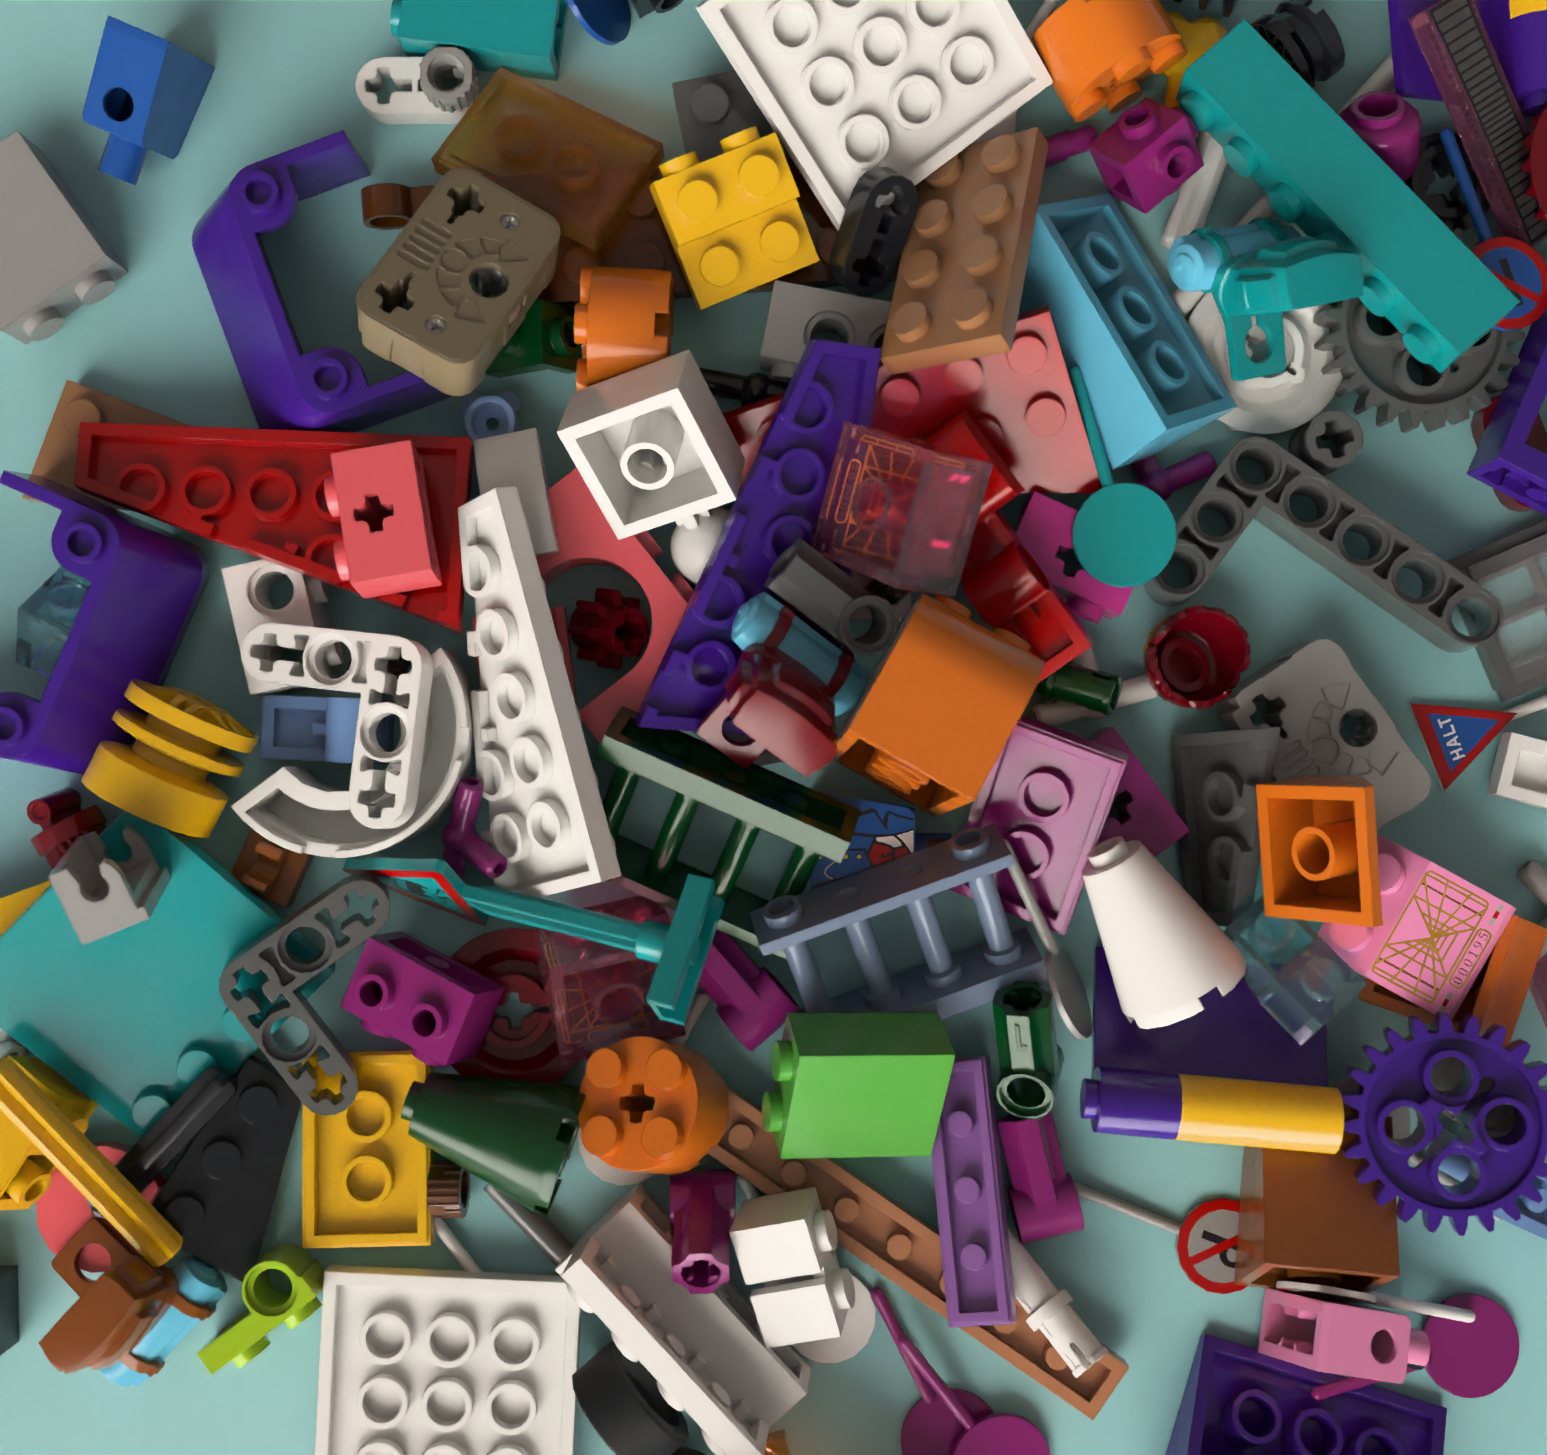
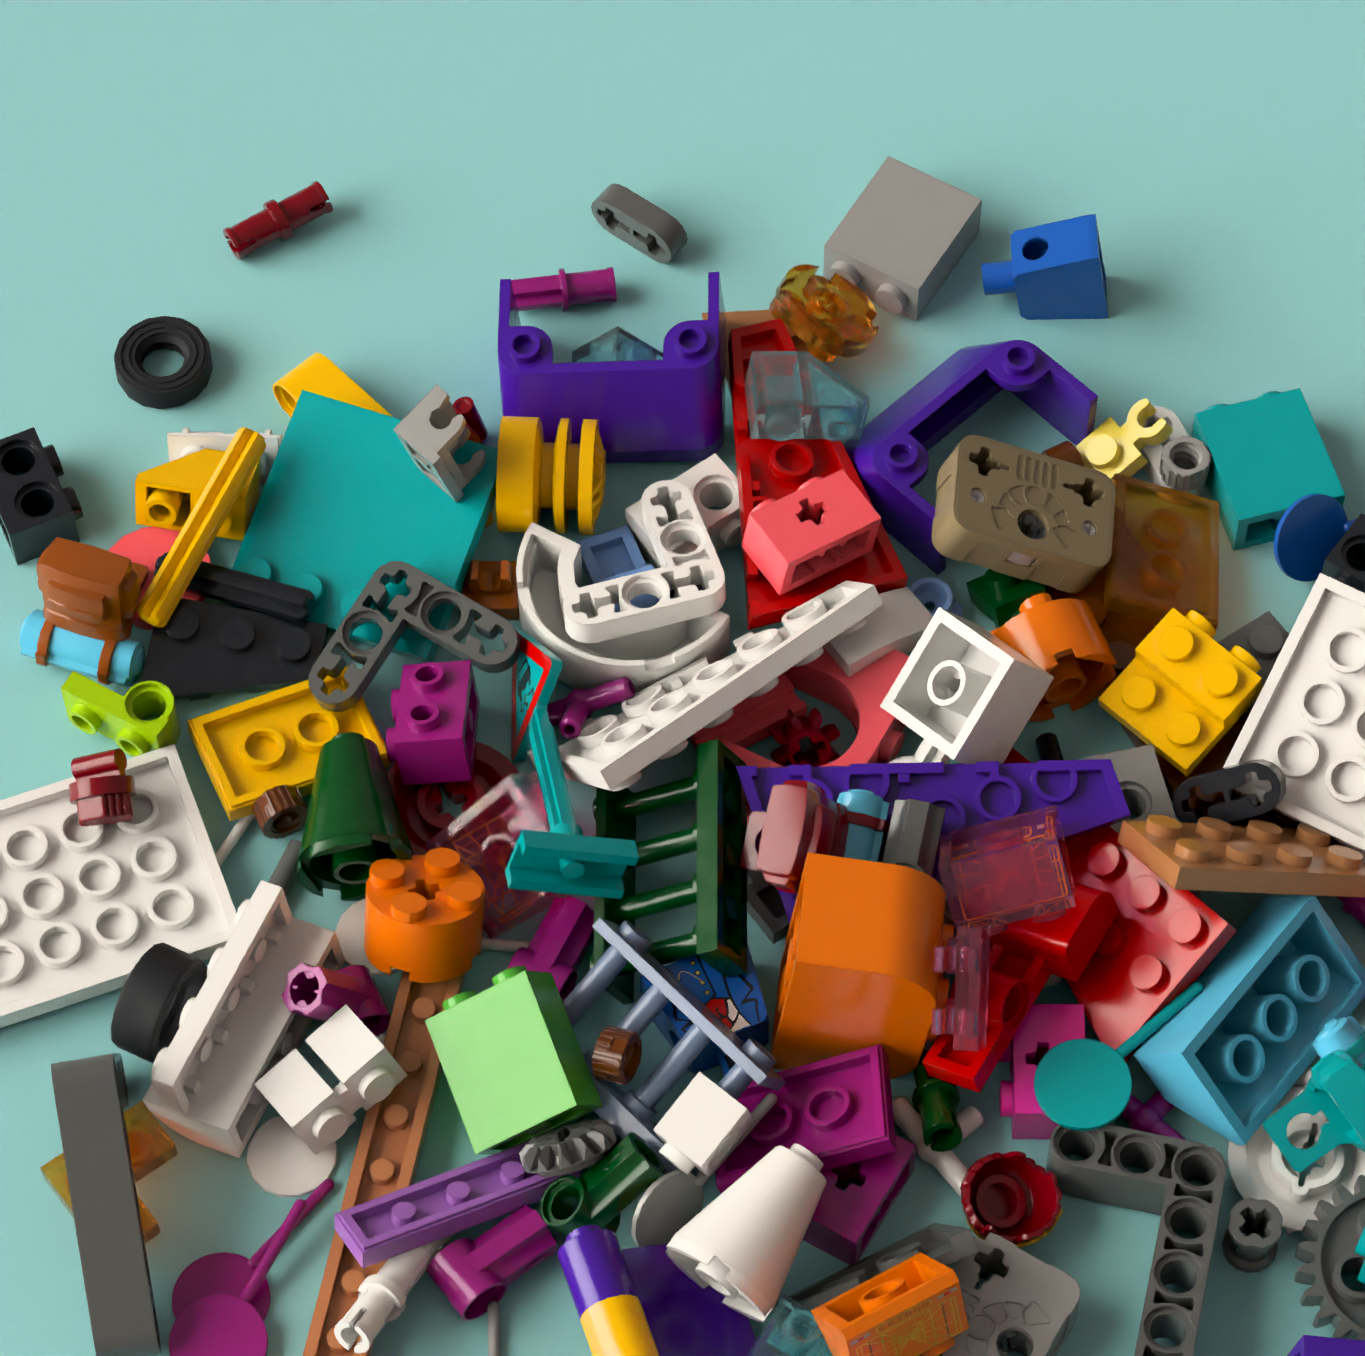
camera: 70 degrees right, 30 degrees down
(73, 395) = (825, 313): none -> clear orange plate
(205, 454) = (801, 399): none -> clear light blue slope
(359, 1378) = (102, 788): none -> dark red piece
(394, 146) = (1118, 448): none -> light yellow plate
(905, 984) = (616, 1055): none -> reddish brown axle
(993, 1060) = (568, 1148): none -> dark grey gear
(1027, 935) = (701, 1126): none -> white brick
(1028, 621) = (968, 1012): none -> clear pink plate

